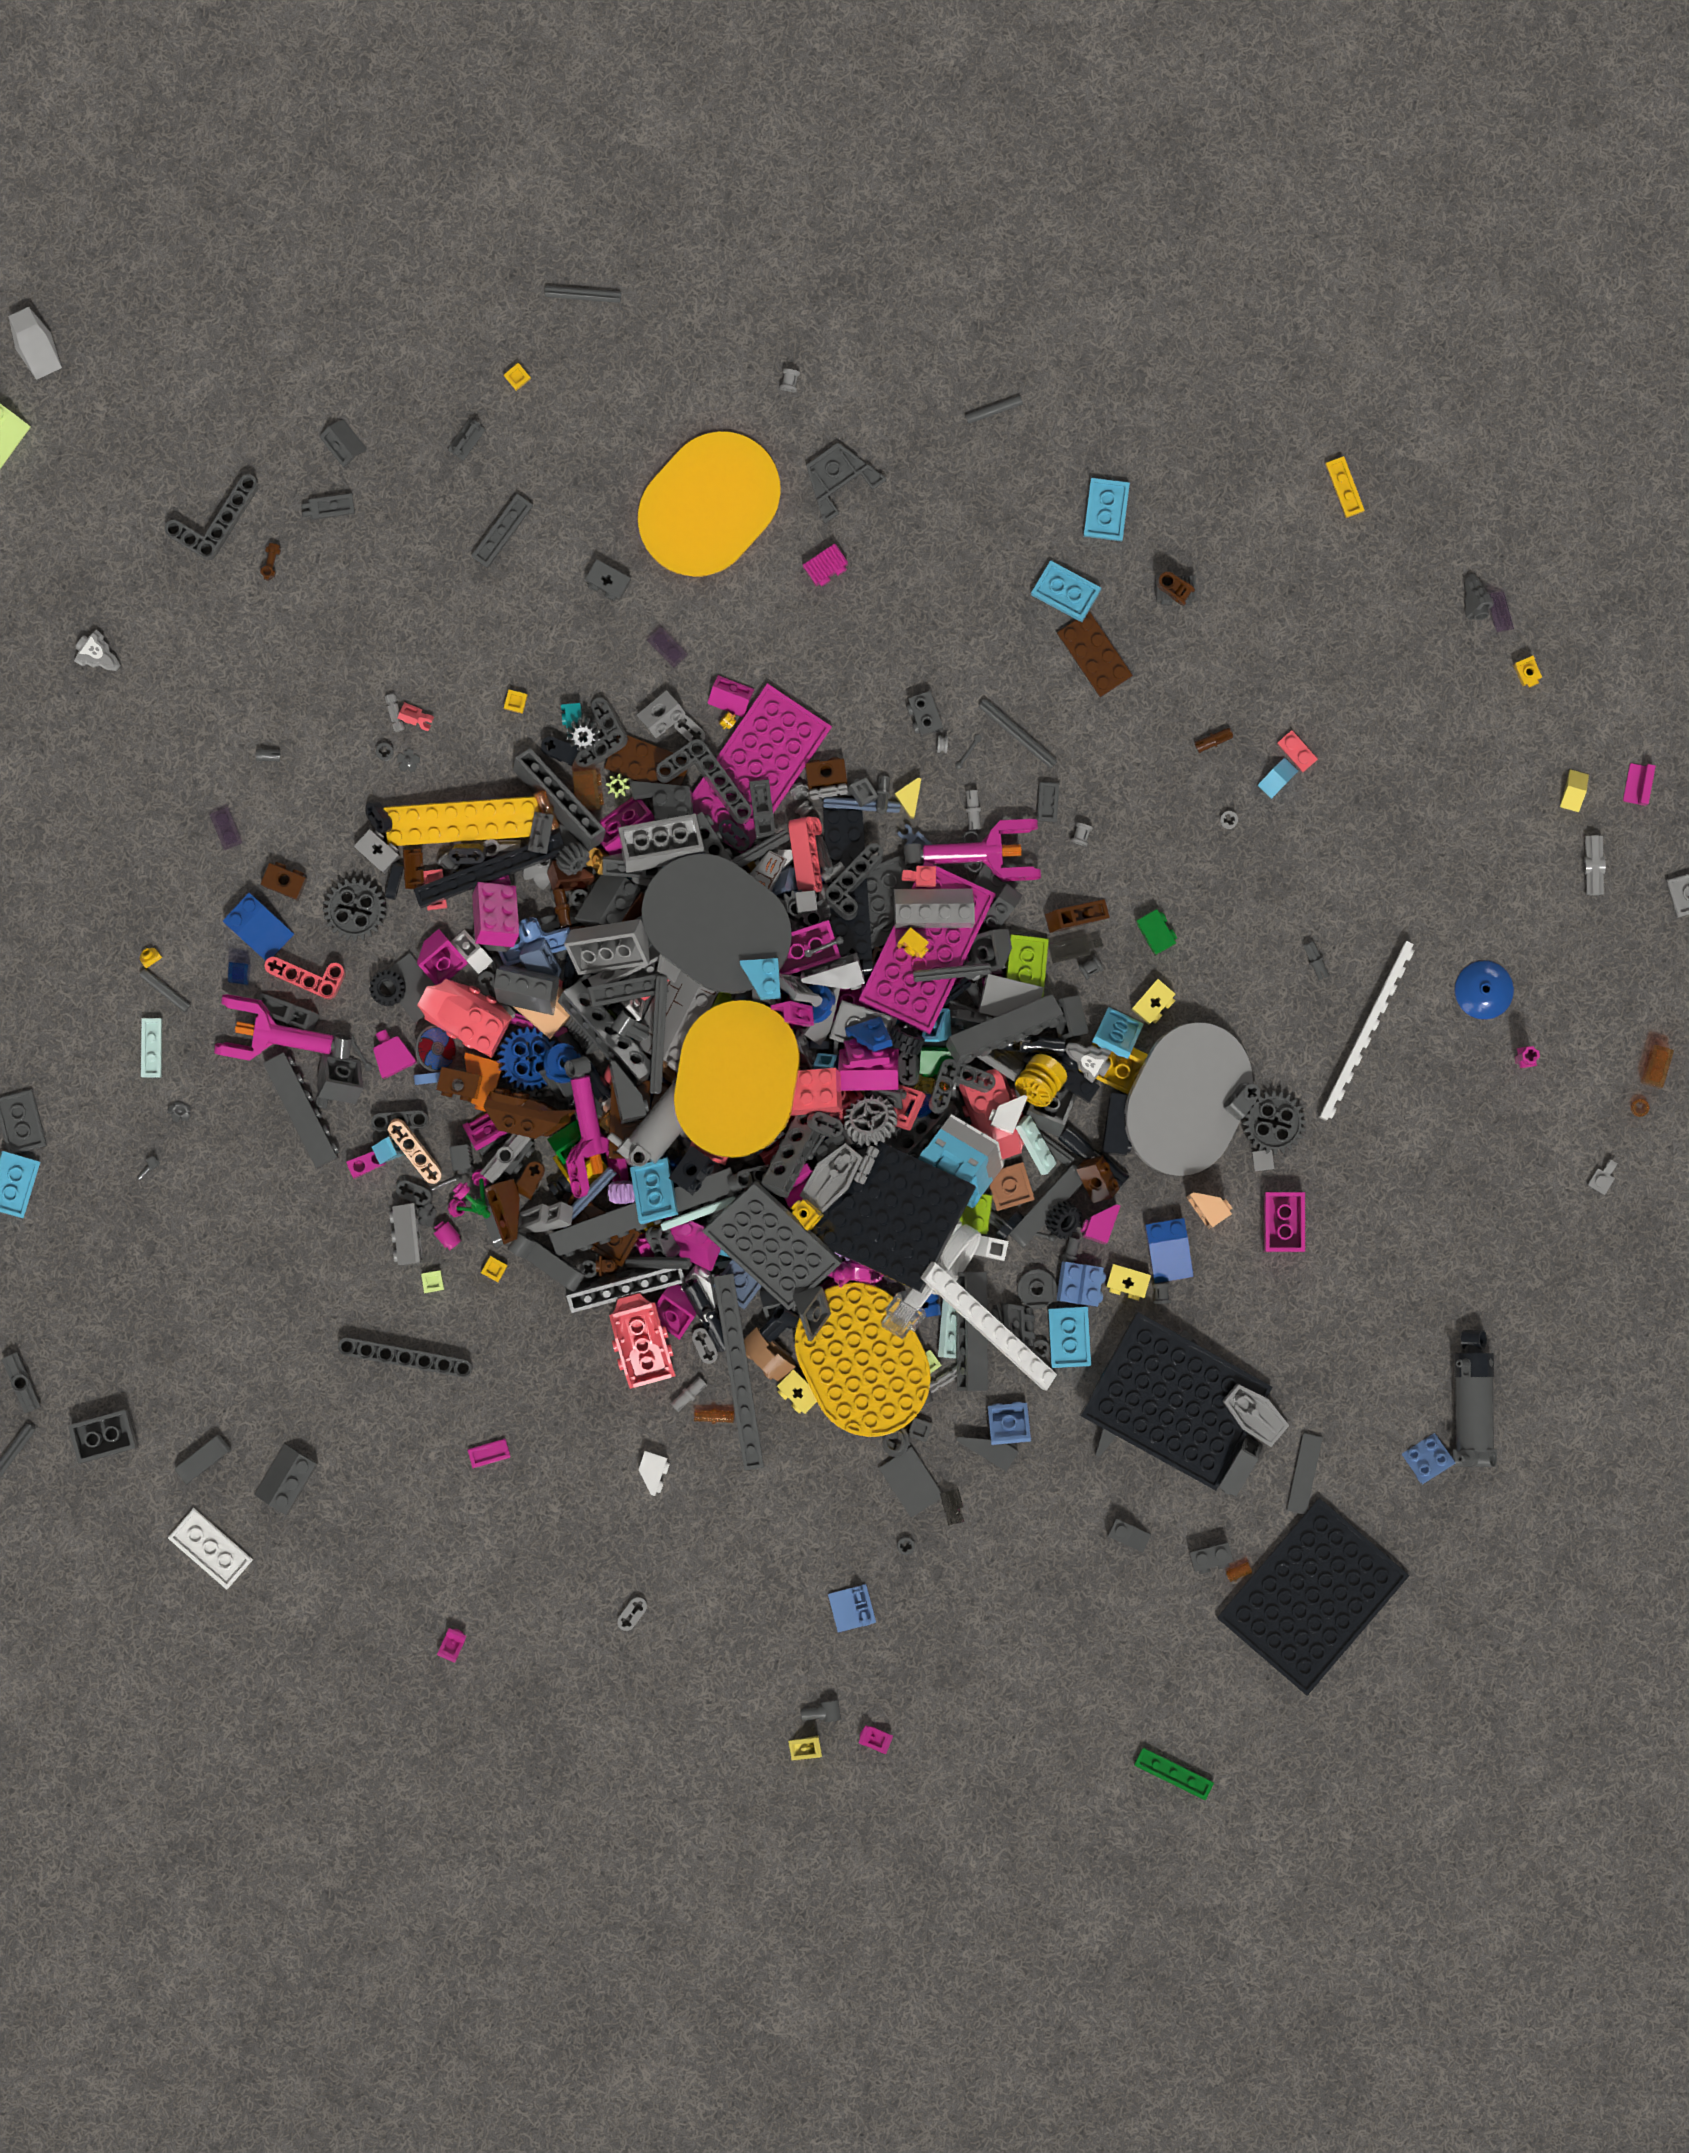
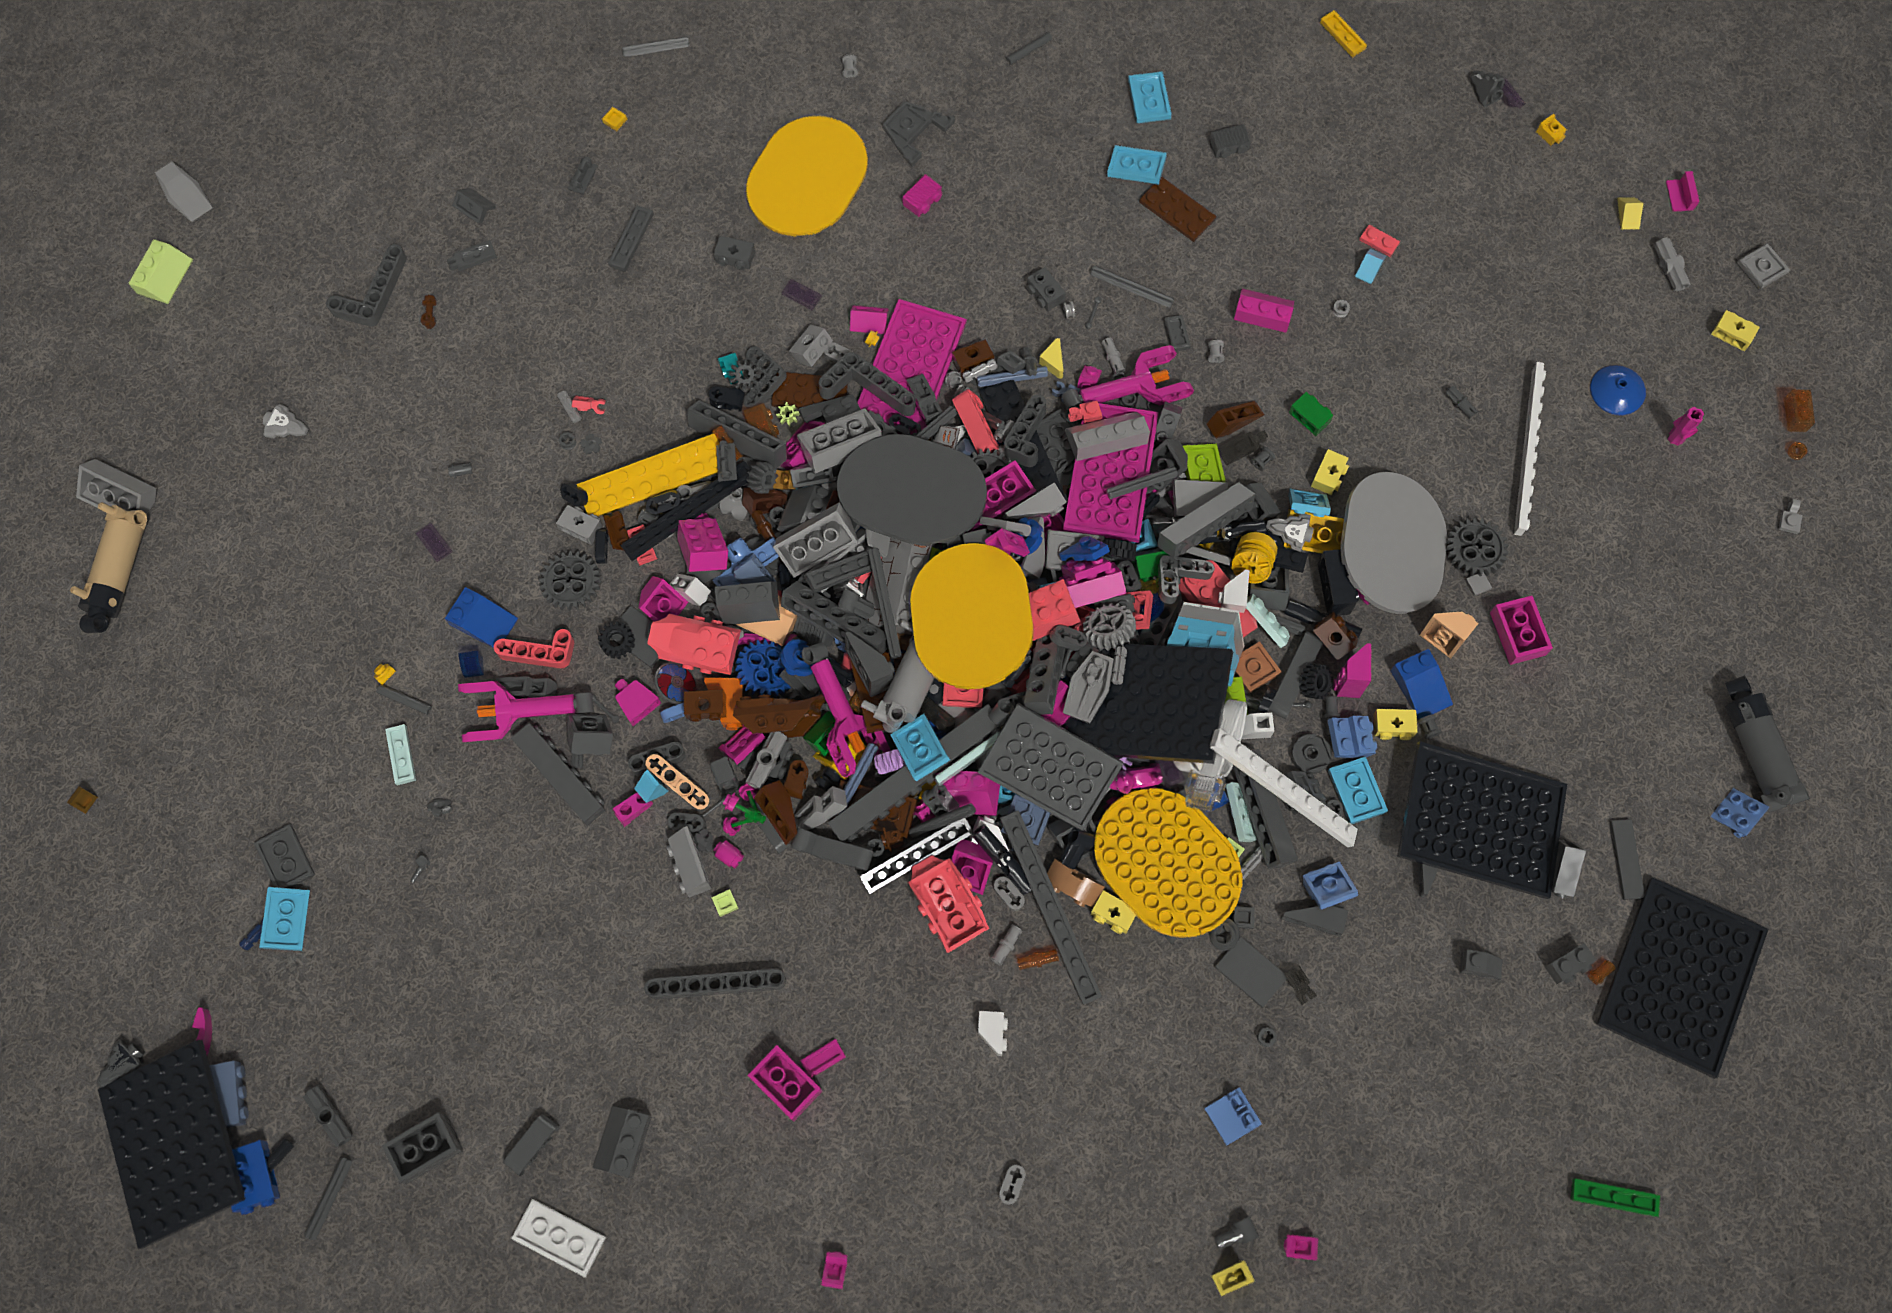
camera: 15 degrees left, 15 degrees down
(272, 880) = (506, 578): reddish brown brick -> none
(448, 1468) = (785, 1083): none -> dark pink brick
(494, 1269) = (783, 874): yellow plate -> none
(515, 701) = (677, 370): yellow plate -> none
(691, 1160) = (950, 706): black brick -> none
(763, 976) = (970, 517): medium azure wing -> none
(805, 901) = (988, 456): light grey tile -> none
(812, 1310) = (1106, 822): dark grey slope -> none
(813, 1214) = (1082, 727): yellow brick -> none
(839, 940) = (1005, 493): dark grey hinge -> none
(913, 944) = (1099, 465): yellow brick -> none
(940, 829) = (1089, 377): none -> dark pink bracket
(1148, 798) = (1264, 310): none -> dark pink slope
(1176, 588) = (1231, 132): reddish brown piece -> none
(1213, 740) = (1304, 249): reddish brown axle -> none
(1240, 1102) = (1443, 531): dark grey piece -> none
(1255, 1414) = (1562, 812): light grey piece -> none
(1619, 956) = (1735, 330): none -> light yellow brick

